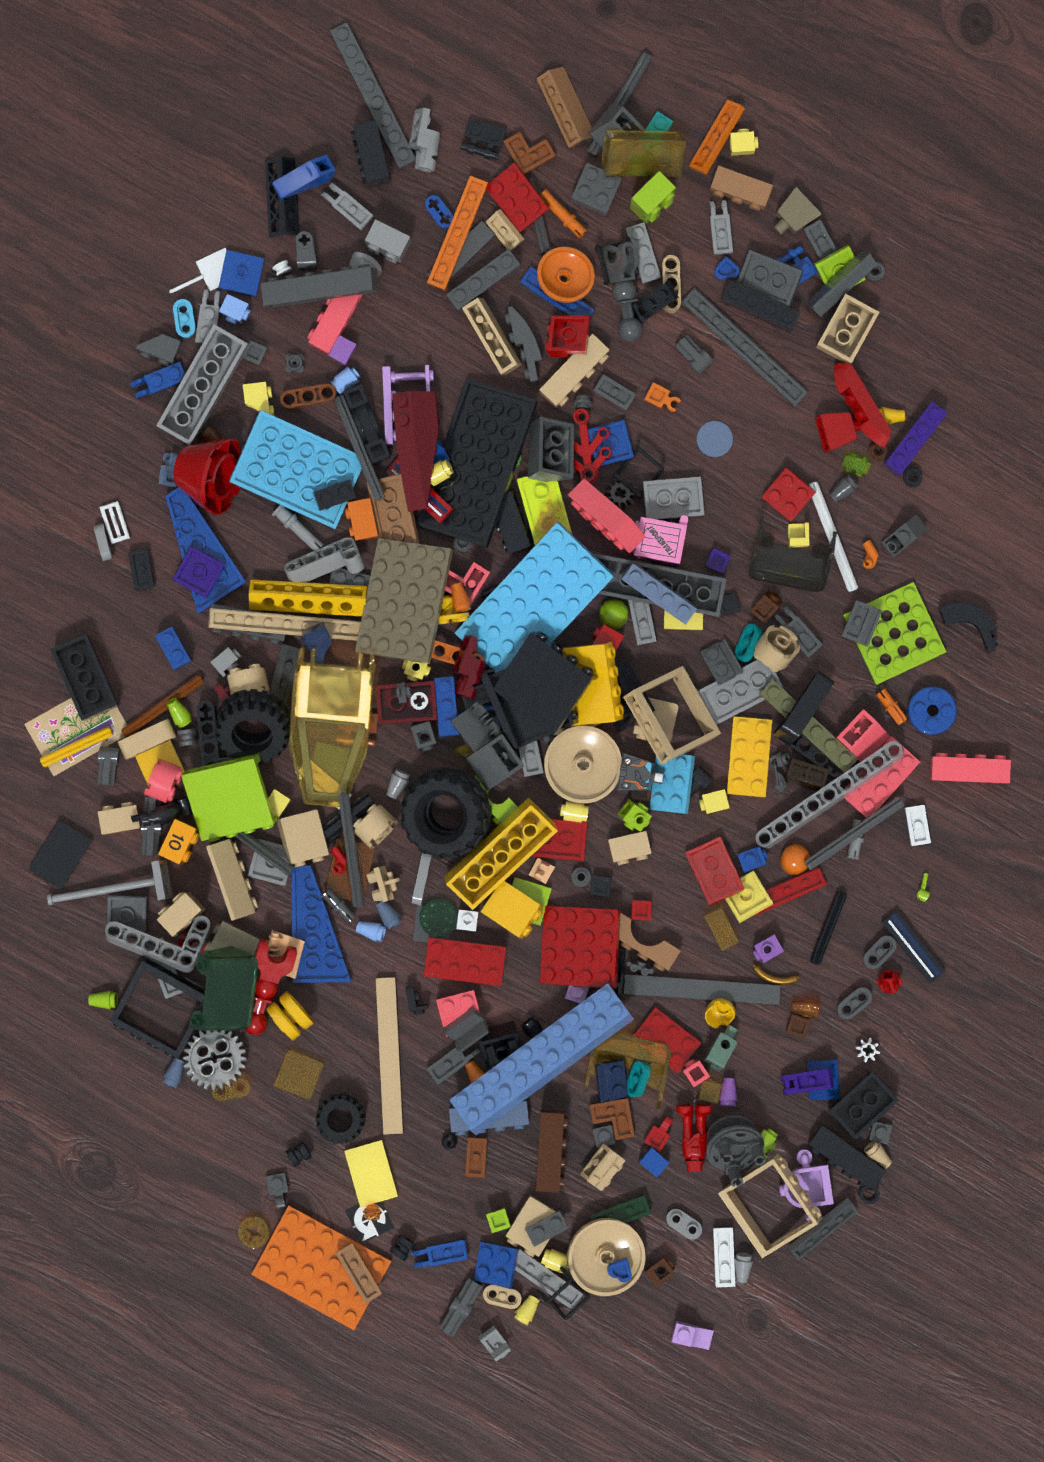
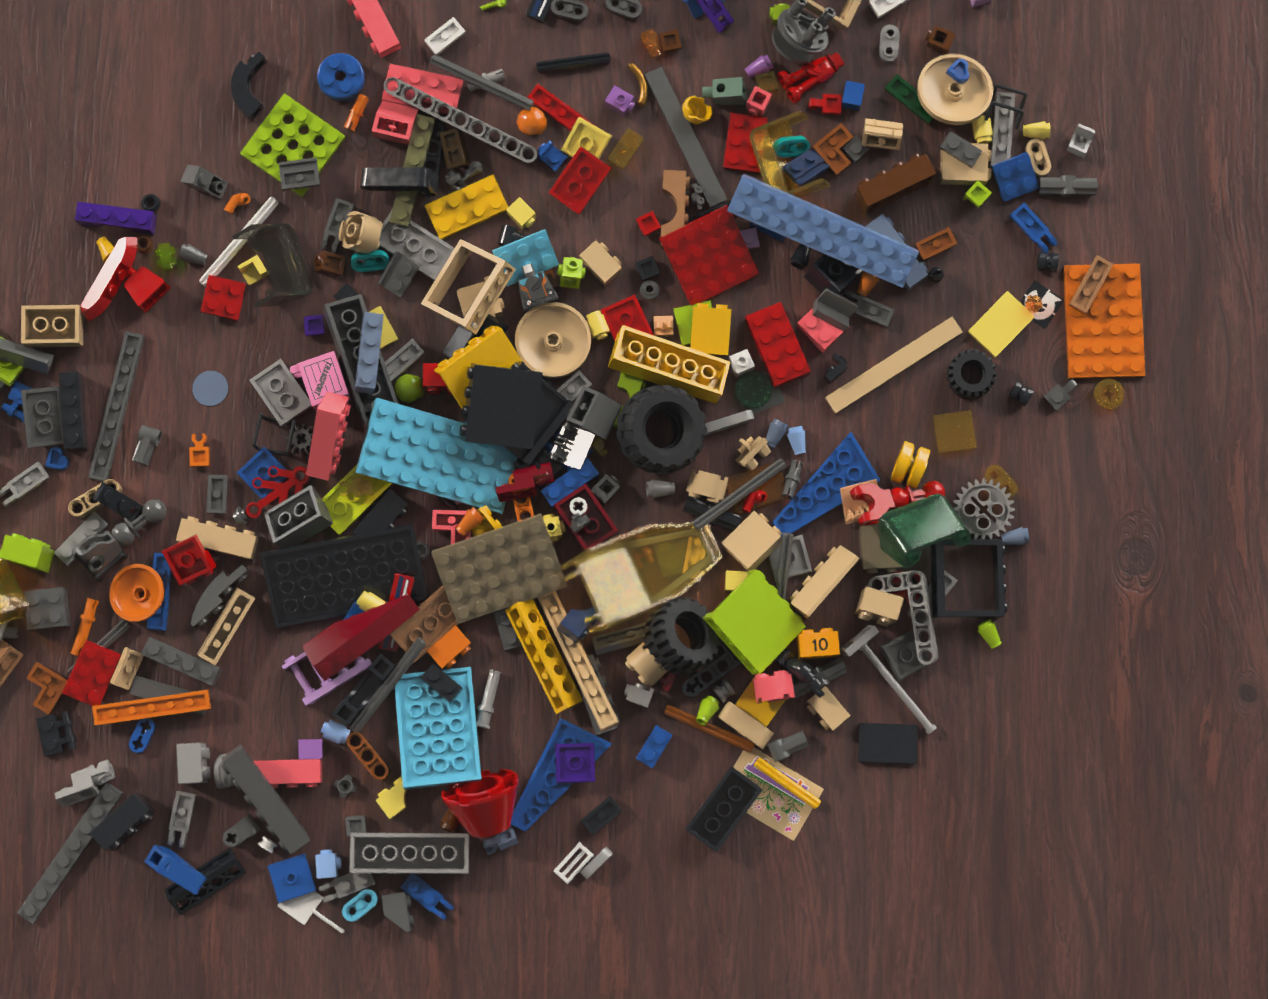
camera: 120 degrees left, 5 degrees down
(325, 560) = (503, 659): light grey beam -> none

